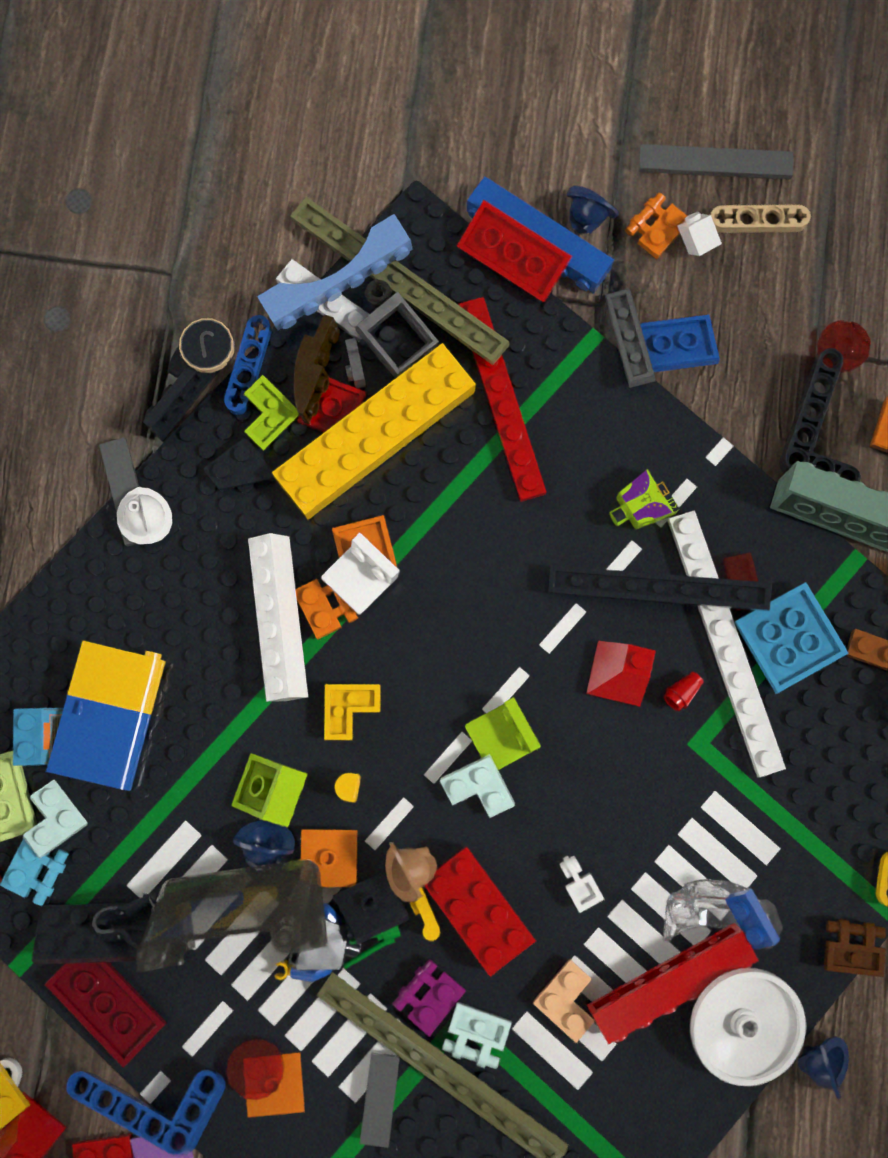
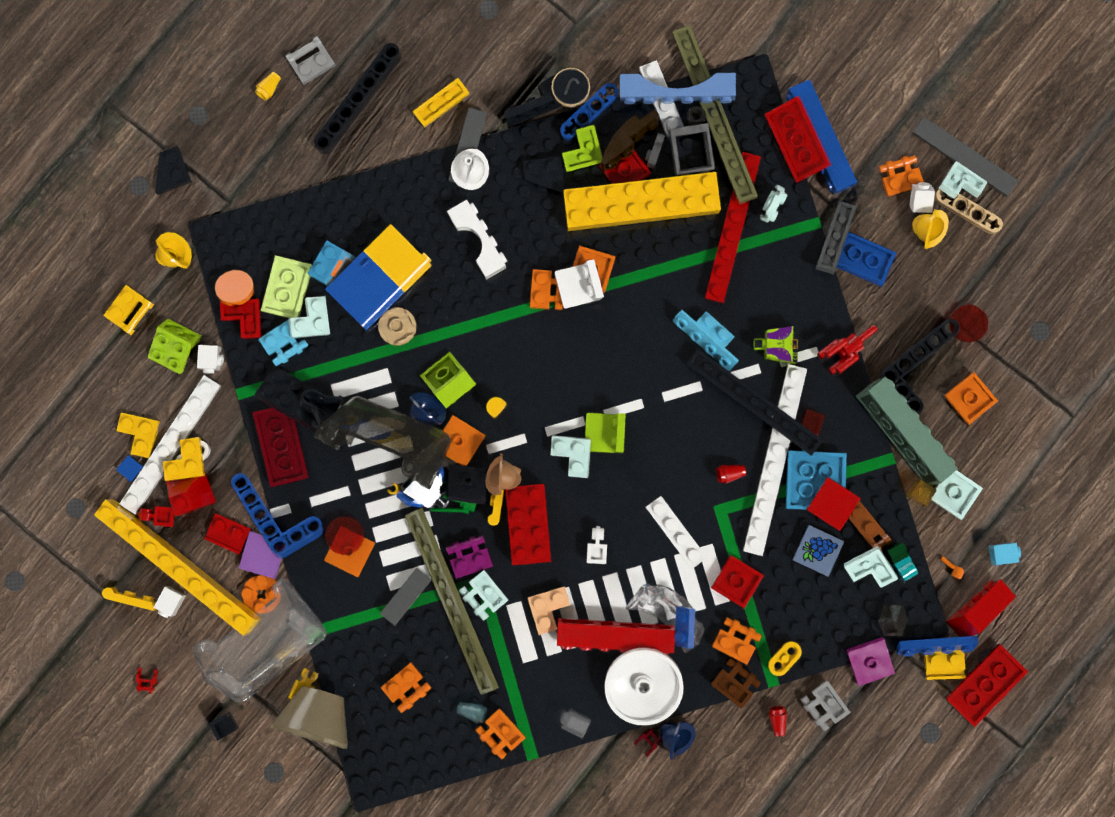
camera: 30 degrees right, 5 degrees up
(62, 459) = (441, 102): none -> yellow plate
(167, 761) = (397, 326): none -> tan tile
(173, 579) = (465, 218): none -> white arch
(277, 618) = (514, 280): white brick -> none
(342, 702) = (521, 355): yellow plate -> none
(532, 341) = (772, 204): none -> light aqua plate
(555, 542) = (709, 335): none -> medium azure bracket
(588, 209) = (863, 139): dark blue helmet -> none
(620, 672) = (699, 438): red slope -> none
(663, 804) = (676, 532): none -> white plate
(691, 1128) = (575, 722): none -> clear brick
(726, 459) = (846, 349): none -> red plant
(728, 186) = (959, 178): none -> light aqua plate
(730, 262) = (930, 227): none -> yellow helmet
(775, 819) = (737, 581): none -> red tile
(784, 1088) = (644, 736): none -> dark red piece
(821, 903) = (734, 646): none -> orange plate
(831, 652) = (833, 504): none -> red tile
(847, 720) = (818, 550): none -> sand blue tile

